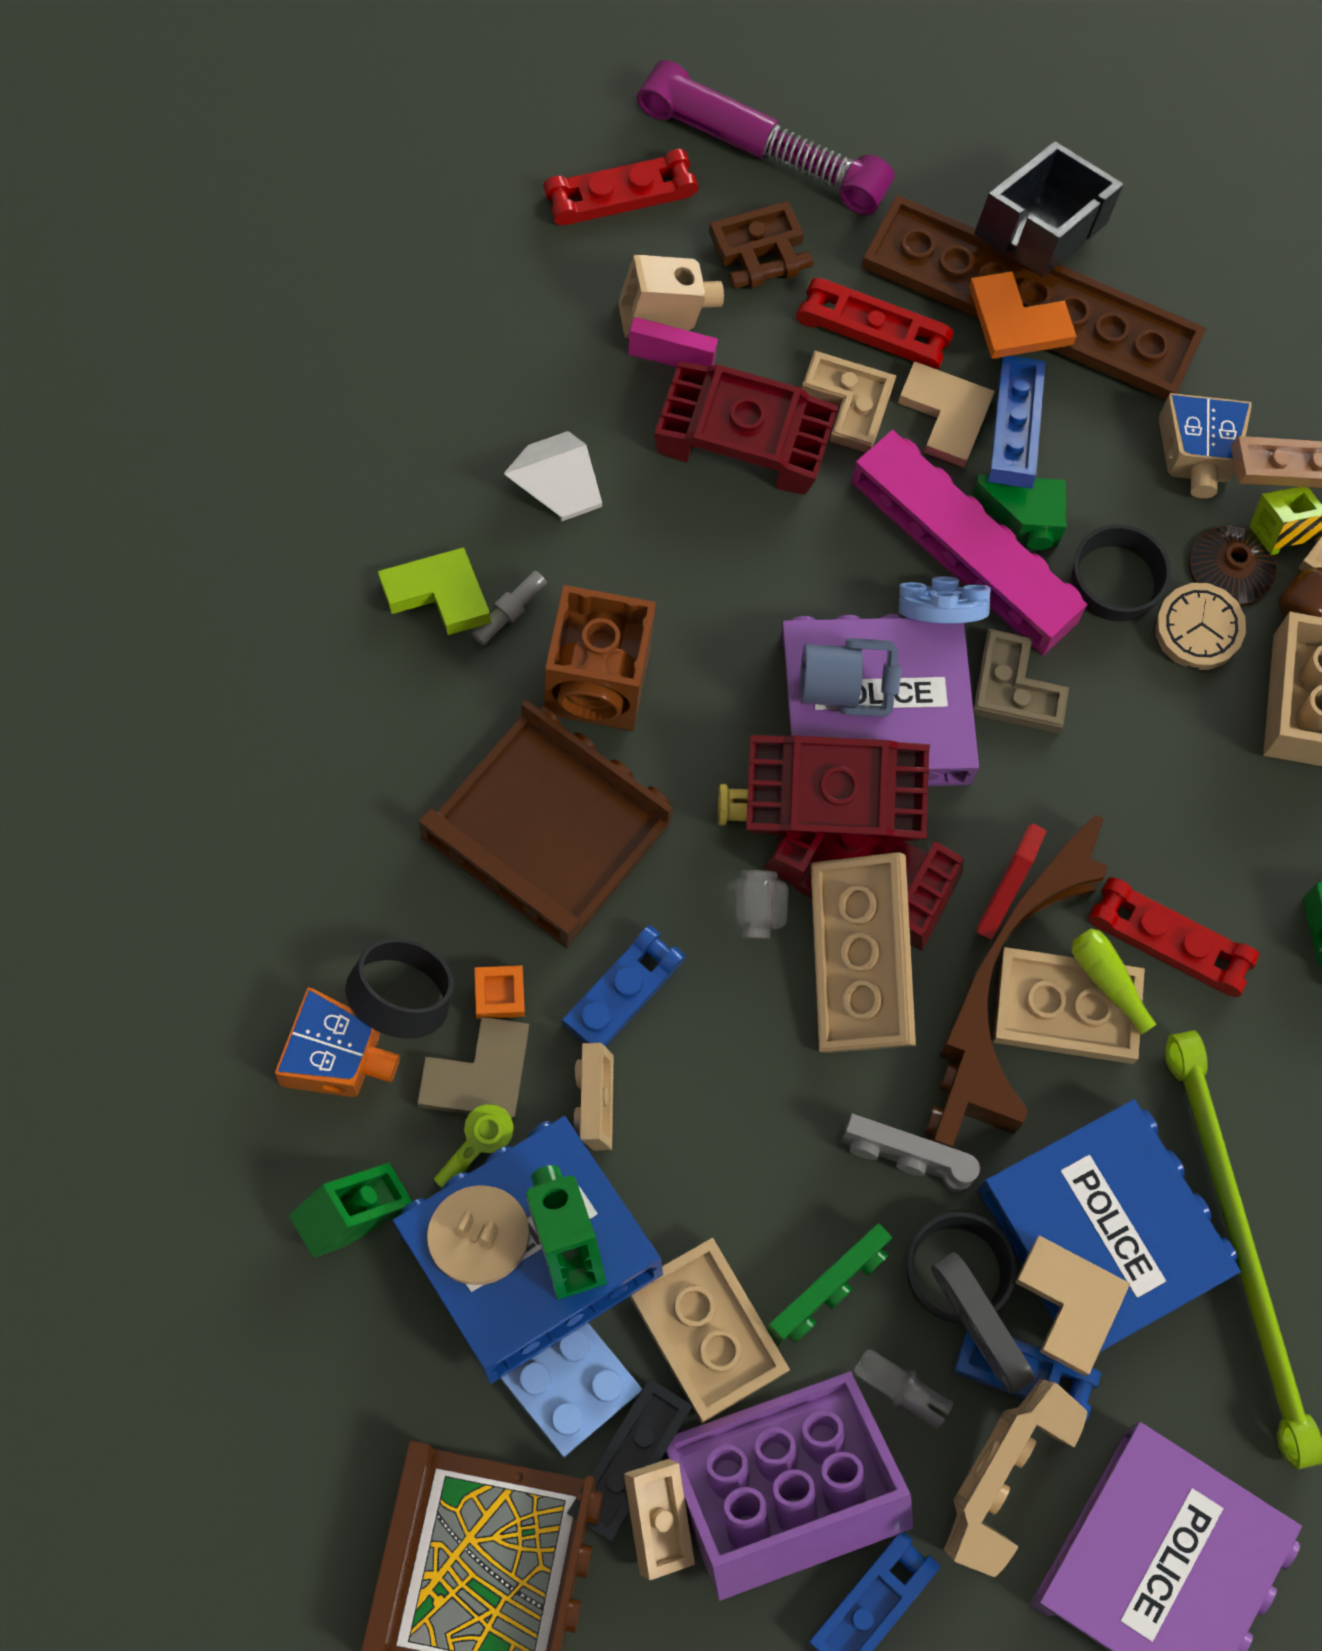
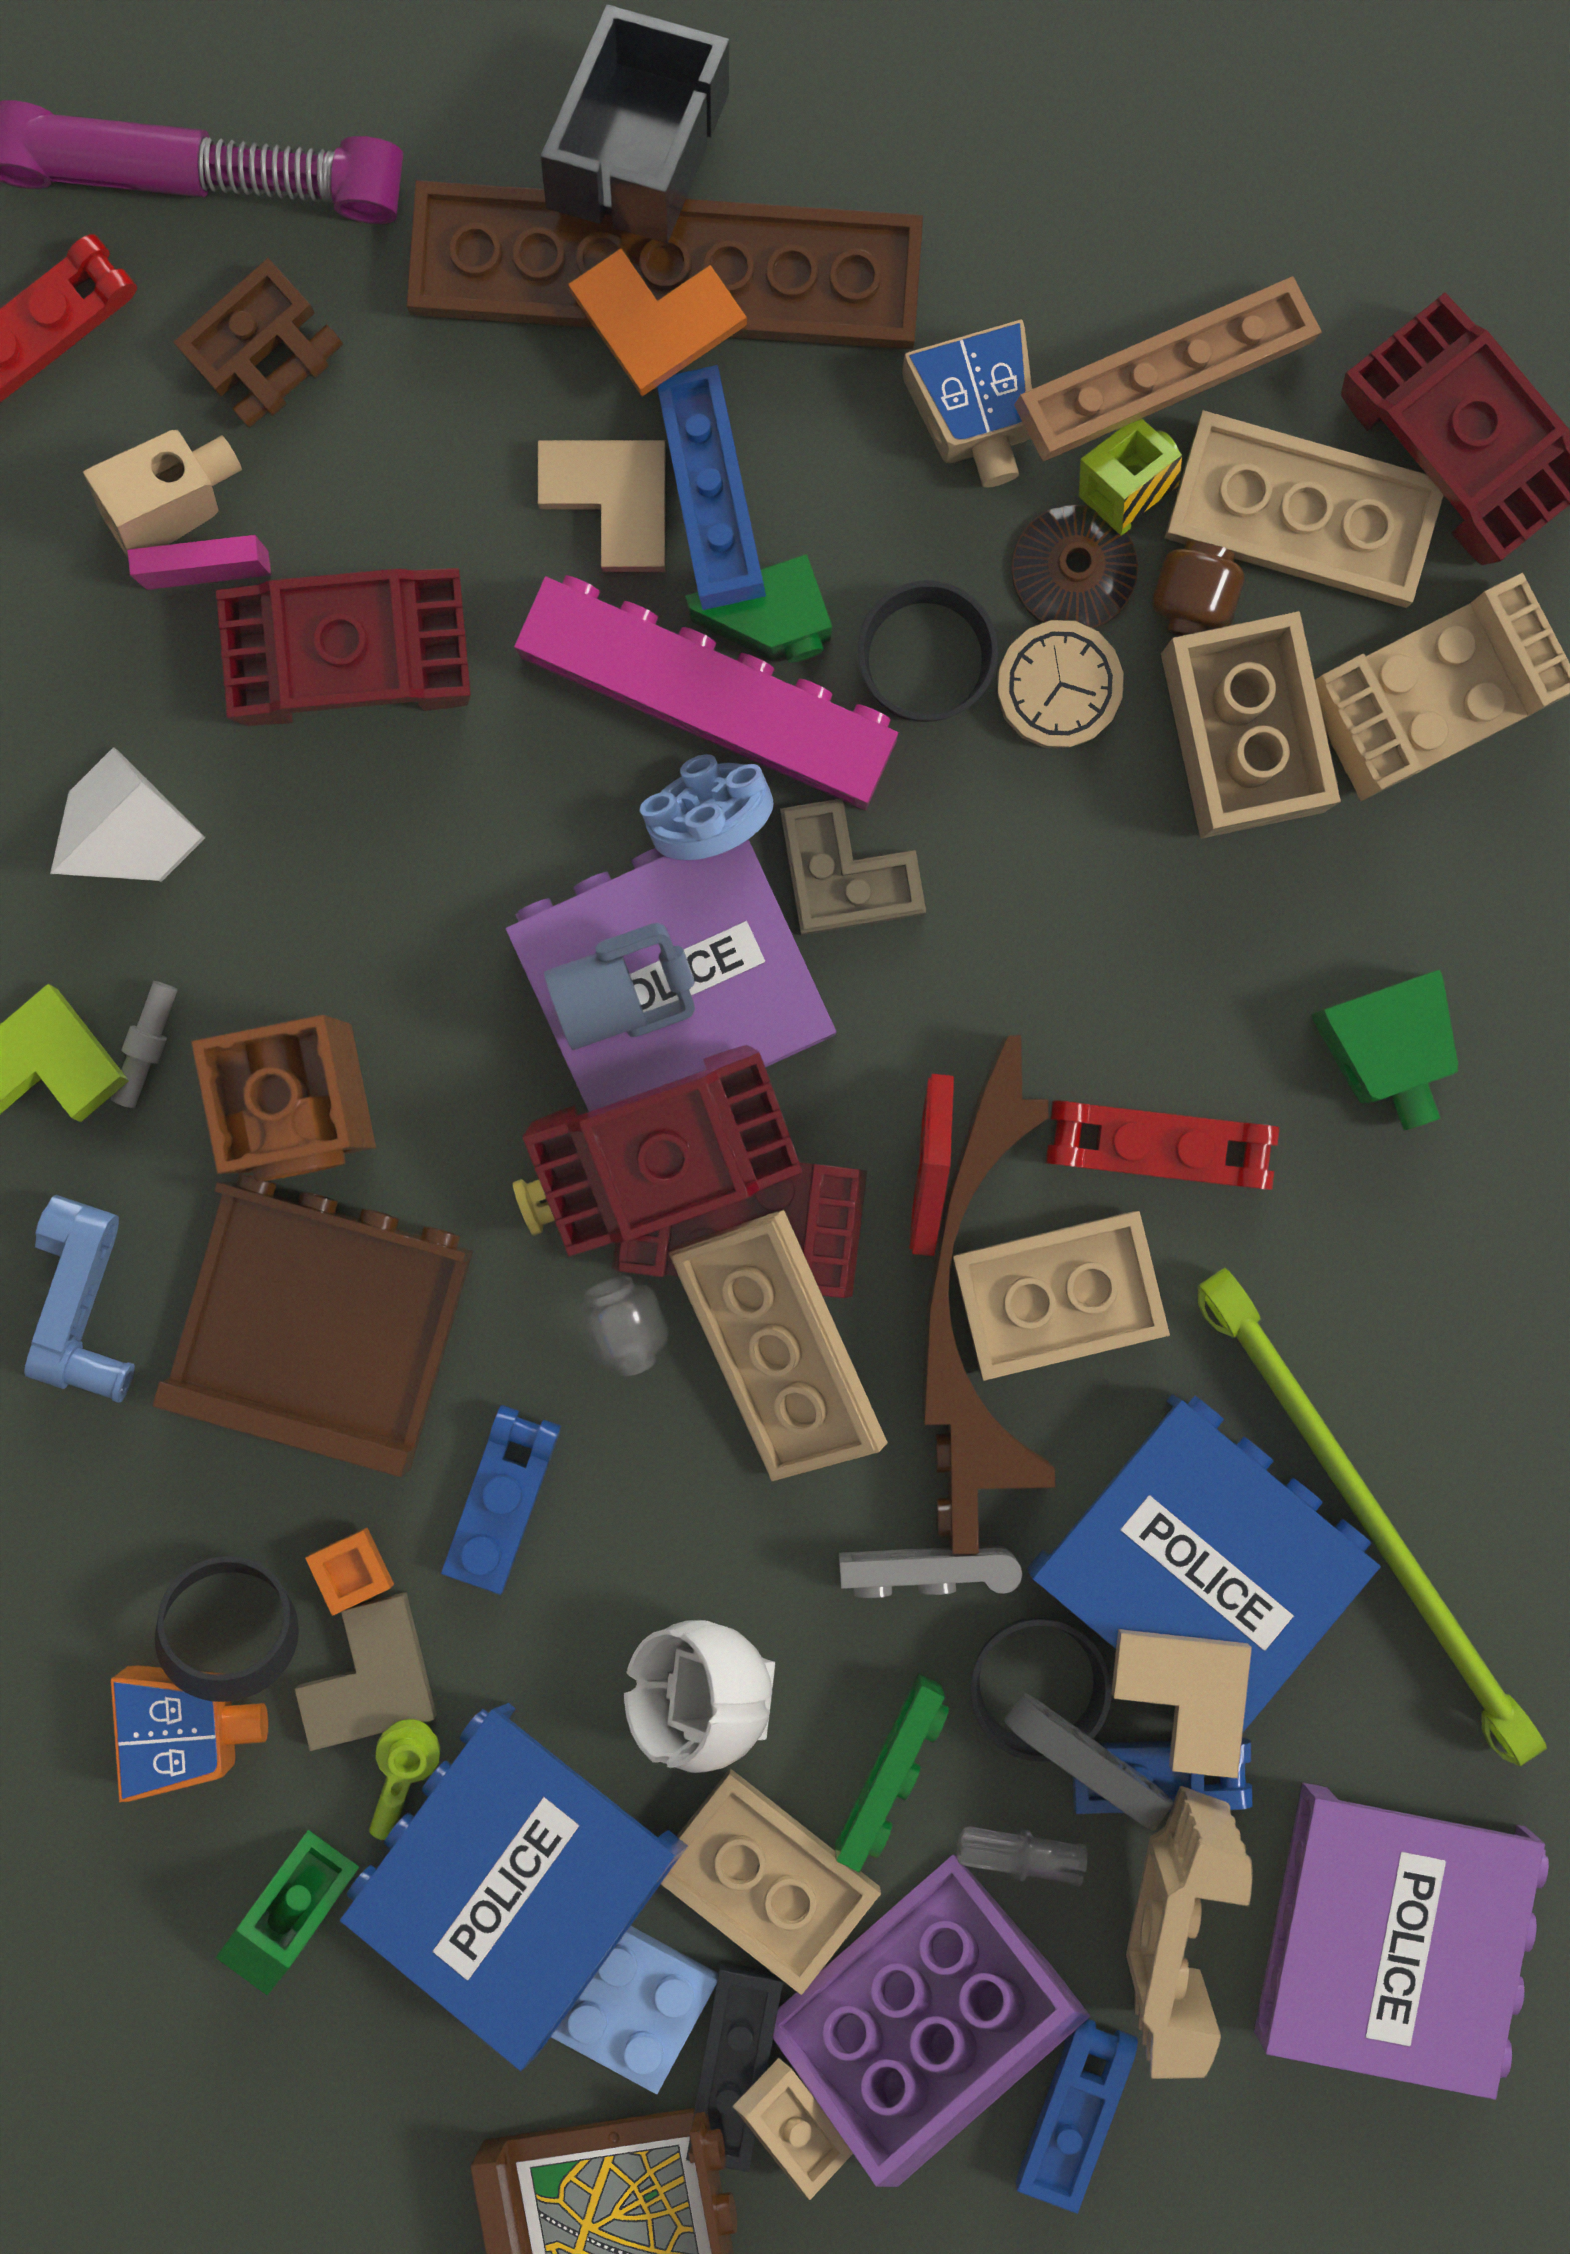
camera: 15 degrees left, 20 degrees up
(413, 711) = (84, 1243): none -> medium blue beam
(478, 1235) = (448, 1906): tan piece -> none
(564, 1232) = (543, 1886): green torso -> none
(595, 1079) = (522, 1657): tan plate -> none
(717, 1163) = (698, 1696): none -> white piece
(859, 392) = (485, 518): tan tile -> none
(874, 322) = (462, 401): red plate -> none
(1108, 972) = (1092, 1242): lime piece -> none

